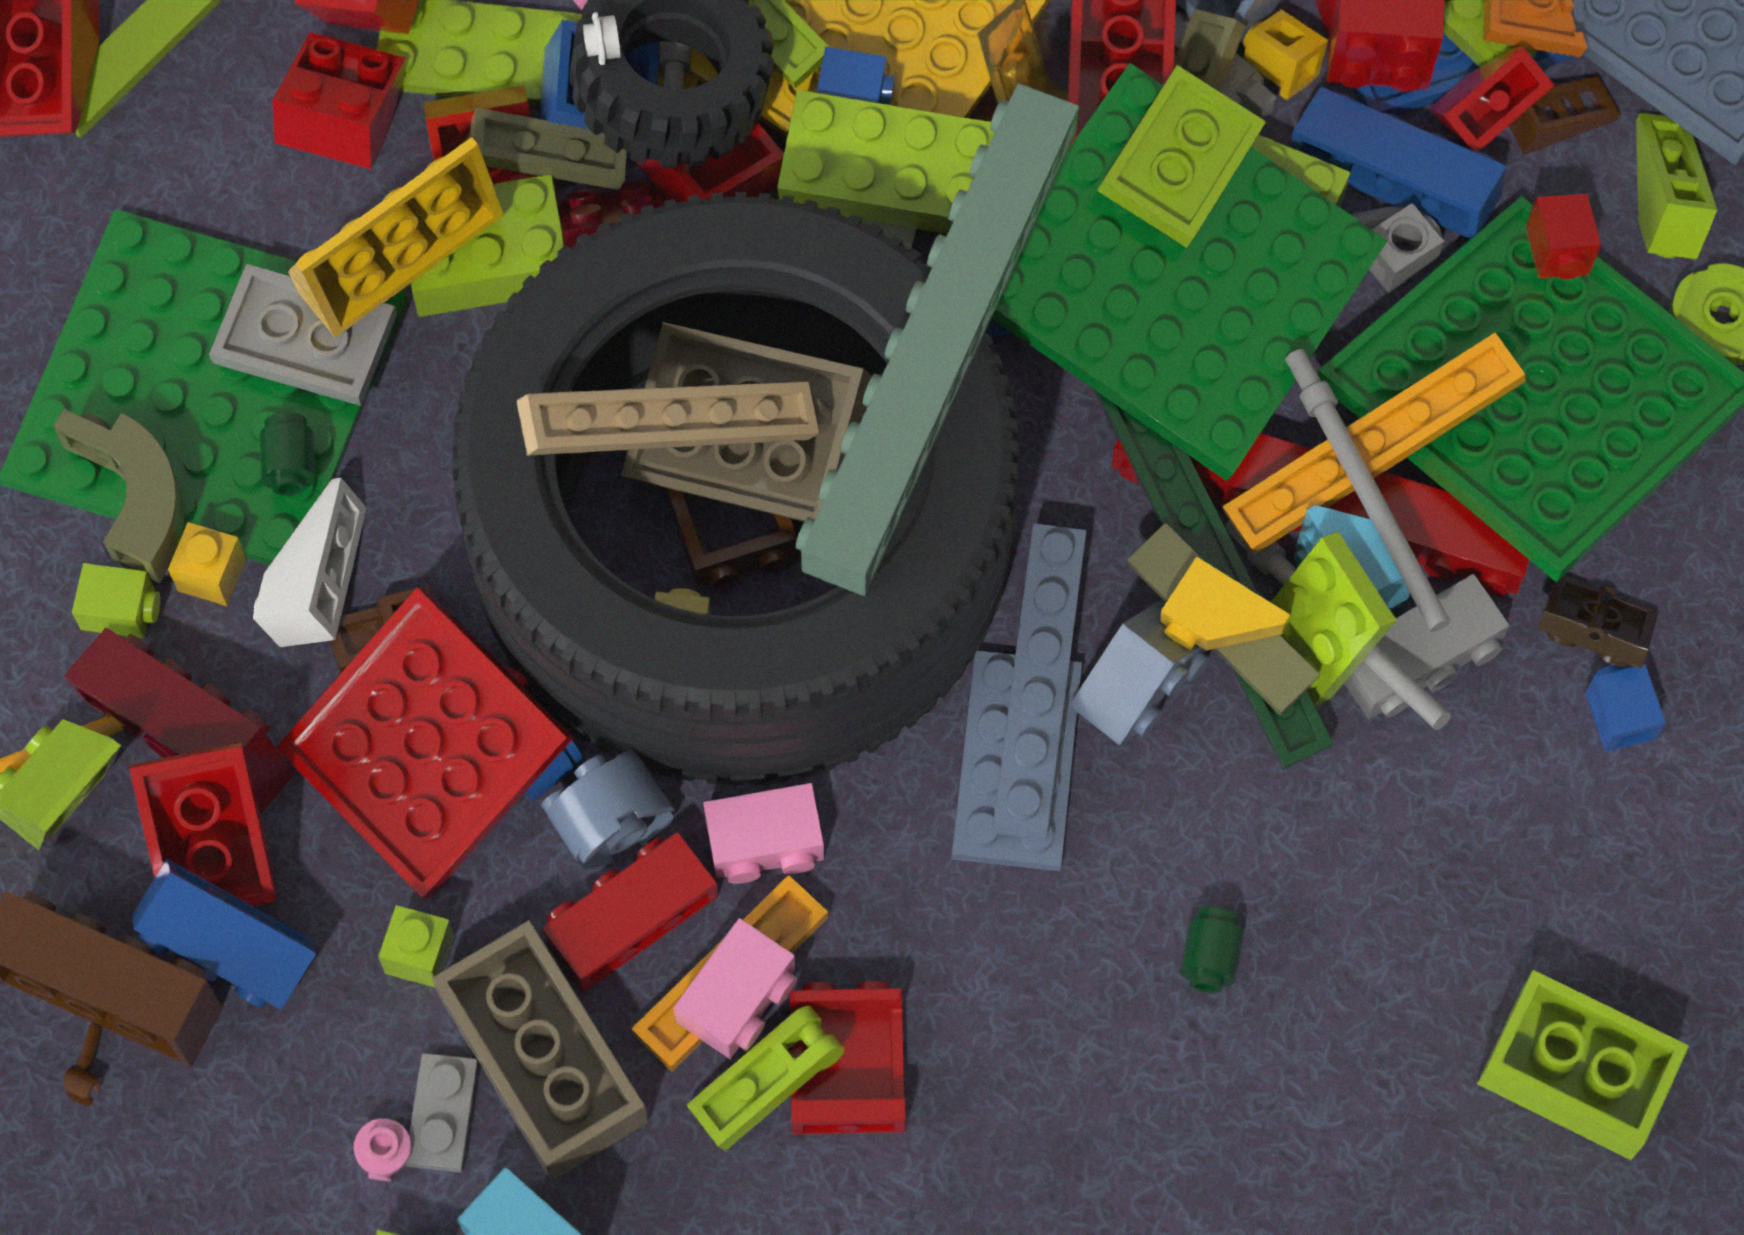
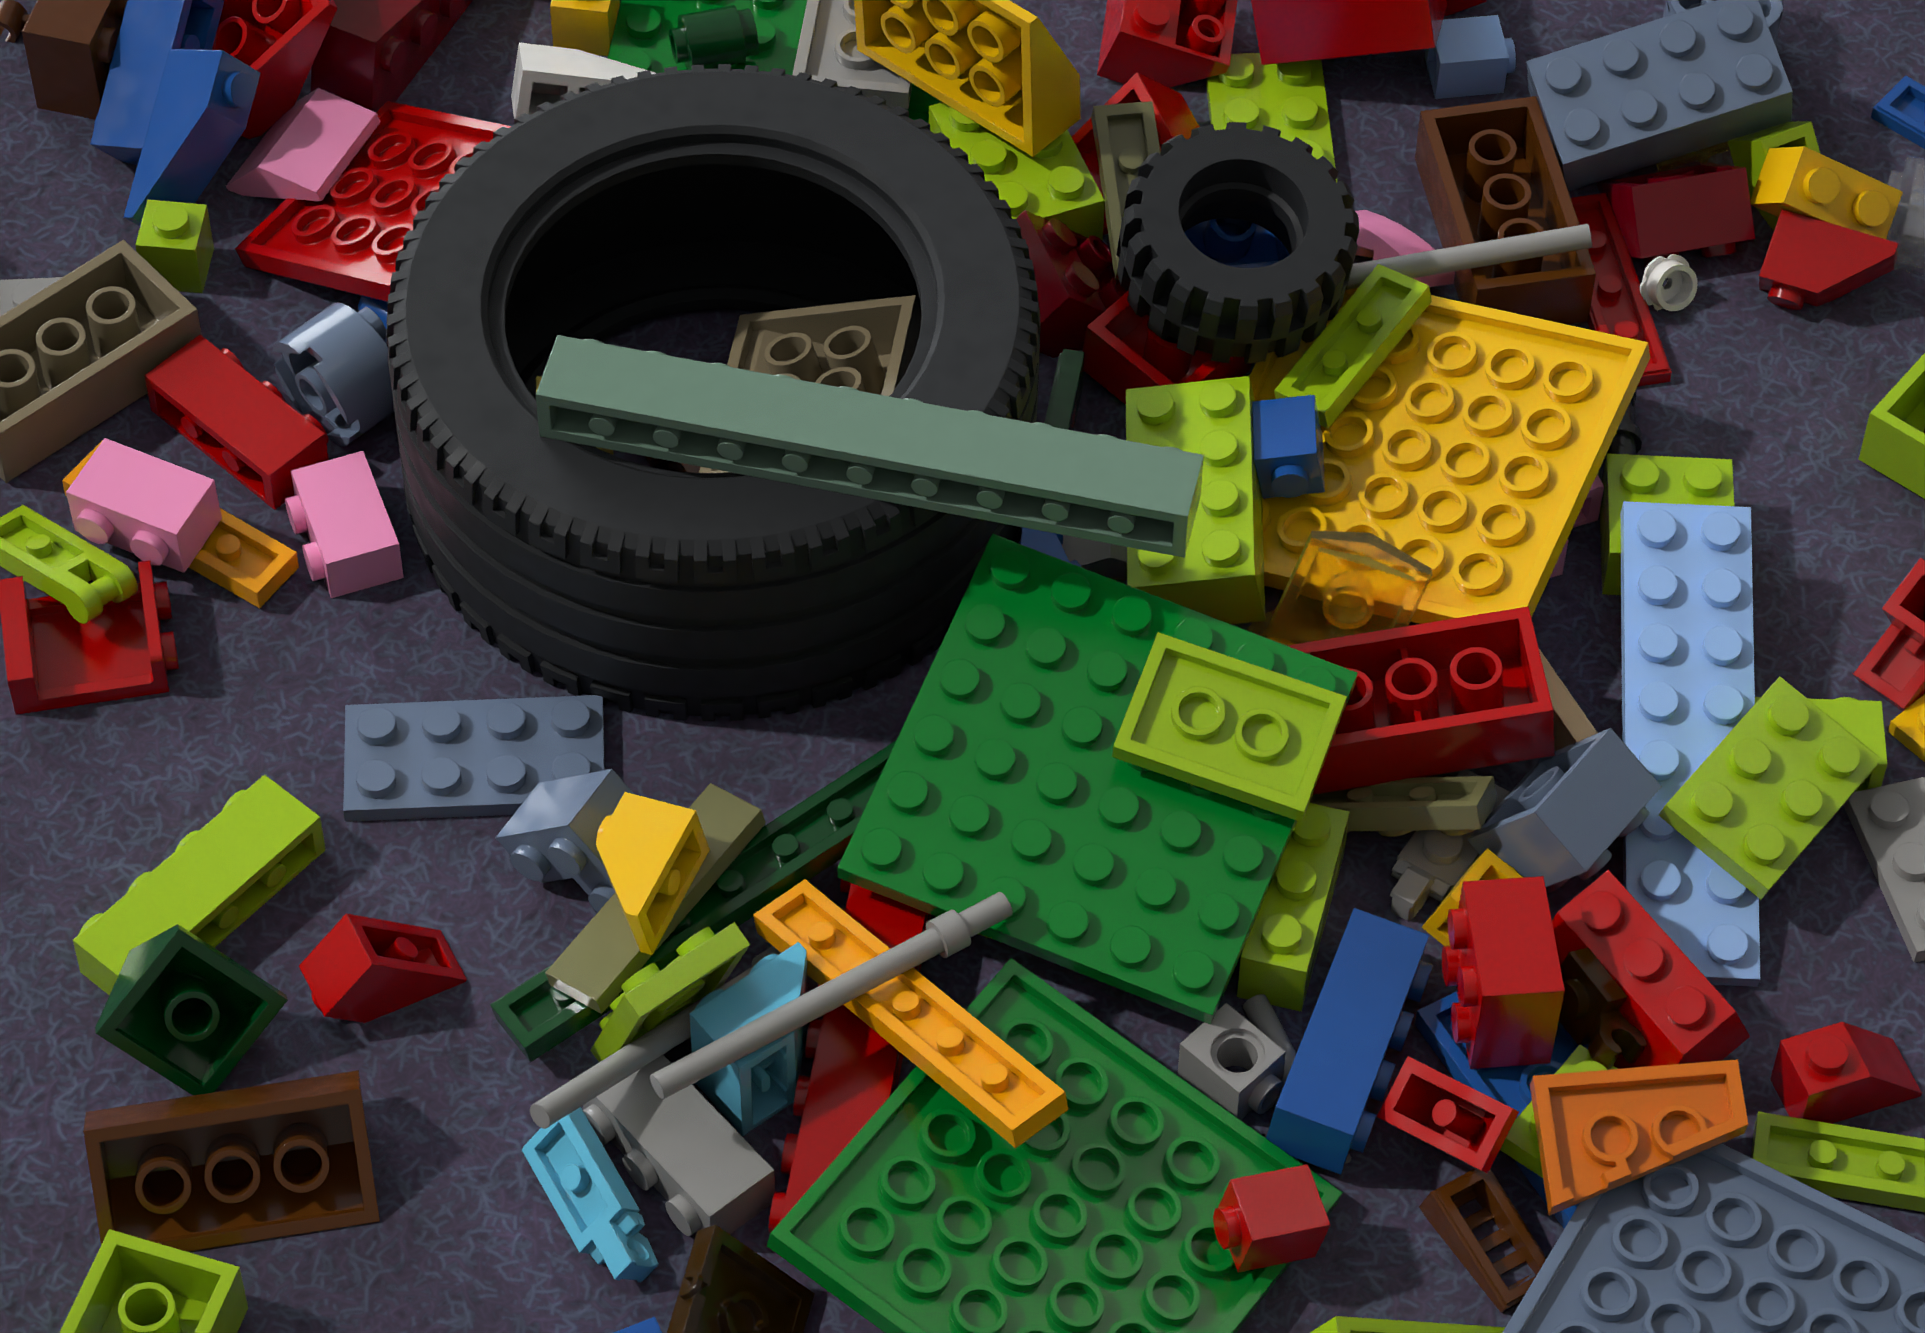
camera: 80 degrees right, 15 degrees down
(297, 900) = (192, 126): none -> blue slope
(321, 826) = (306, 149): none -> bright pink slope
(602, 38) = (1212, 130): white plate -> none
(666, 417) = (733, 229): tan plate -> none
(1039, 682) = (562, 745): sand blue plate -> none
(1135, 986) = (209, 880): none -> lime brick
(1212, 949) = (266, 957): dark green brick -> none
(1231, 851) = (378, 967): none -> red slope
(1272, 1000) = (187, 1010): none -> dark green slope
(1398, 983) = (234, 1164): none -> reddish brown slope
(1476, 716) = (590, 1196): none -> medium azure hinge

